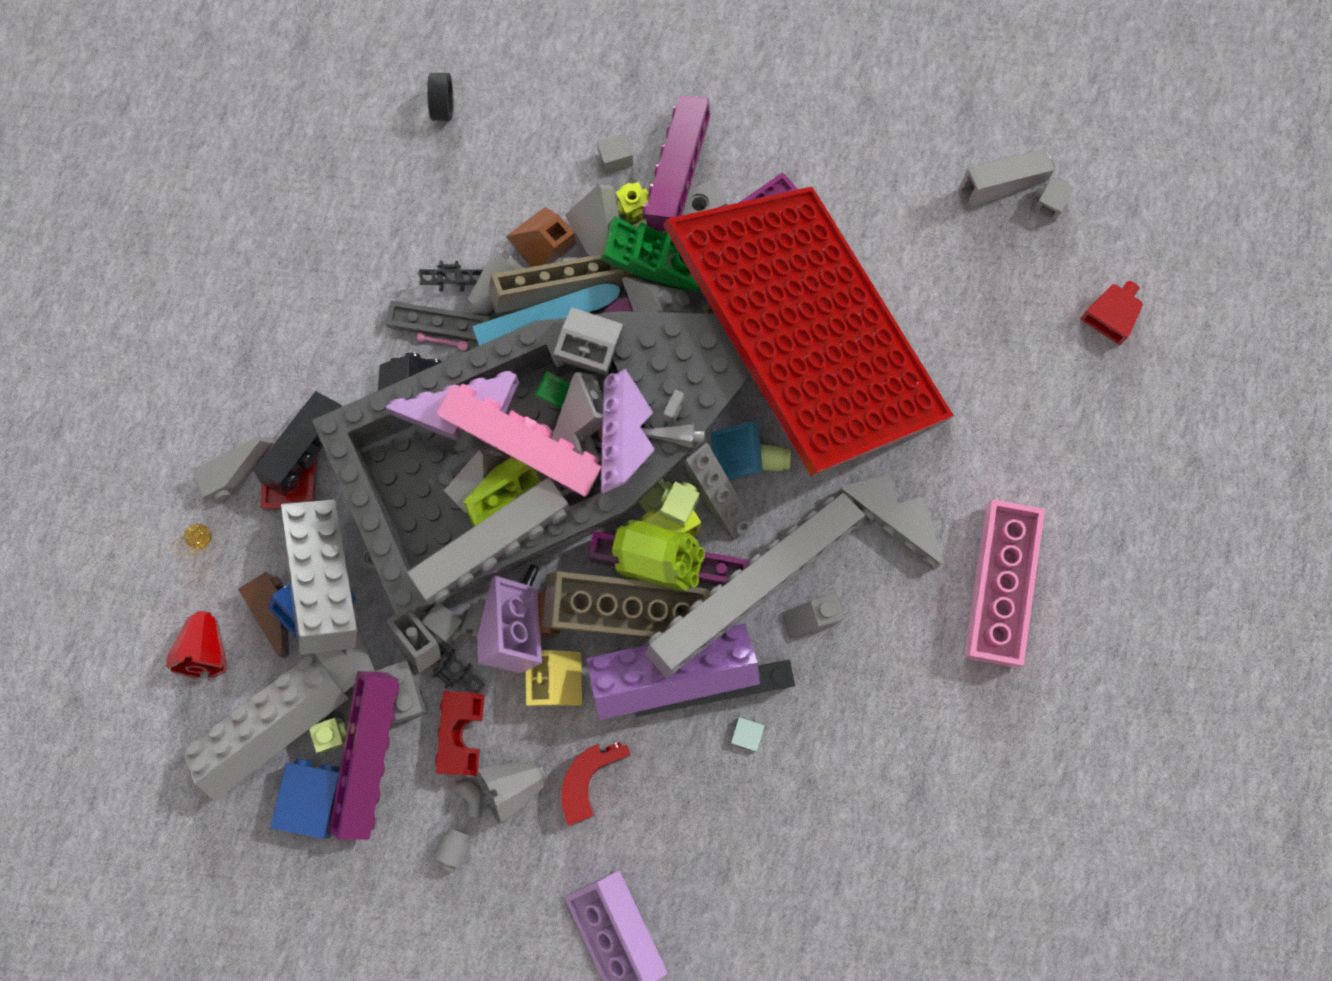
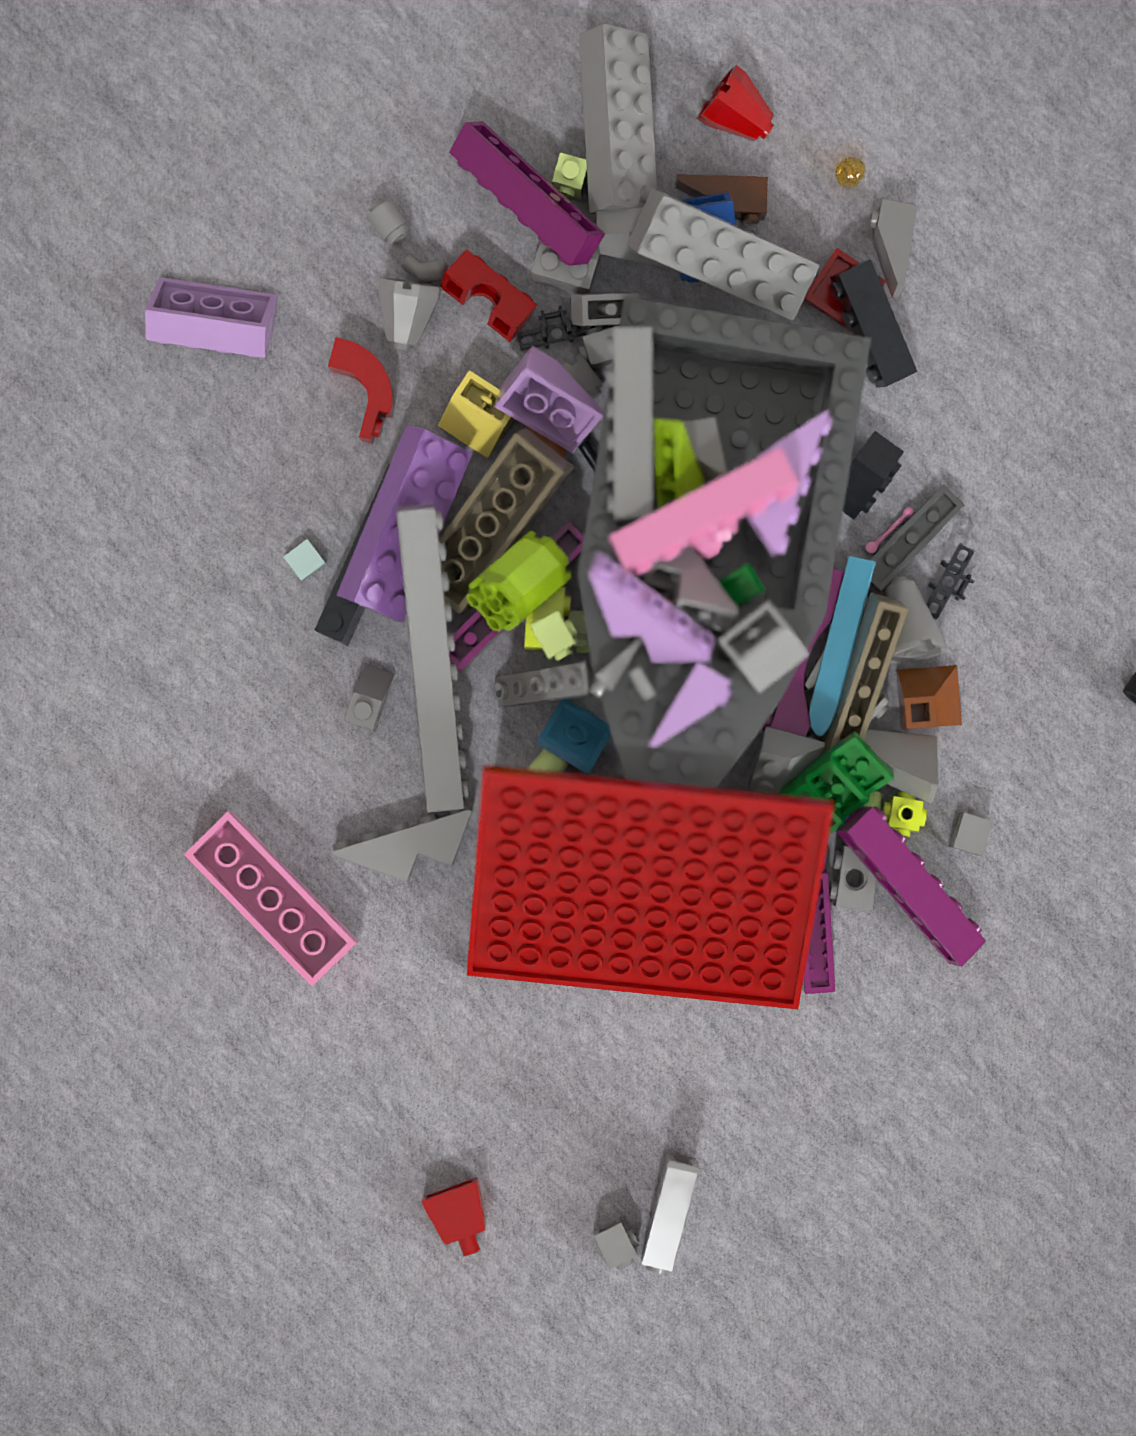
camera: 120 degrees right, 10 degrees up
(306, 799) = (526, 119): blue brick -> none
(660, 363) = (697, 698): none -> lavender slope

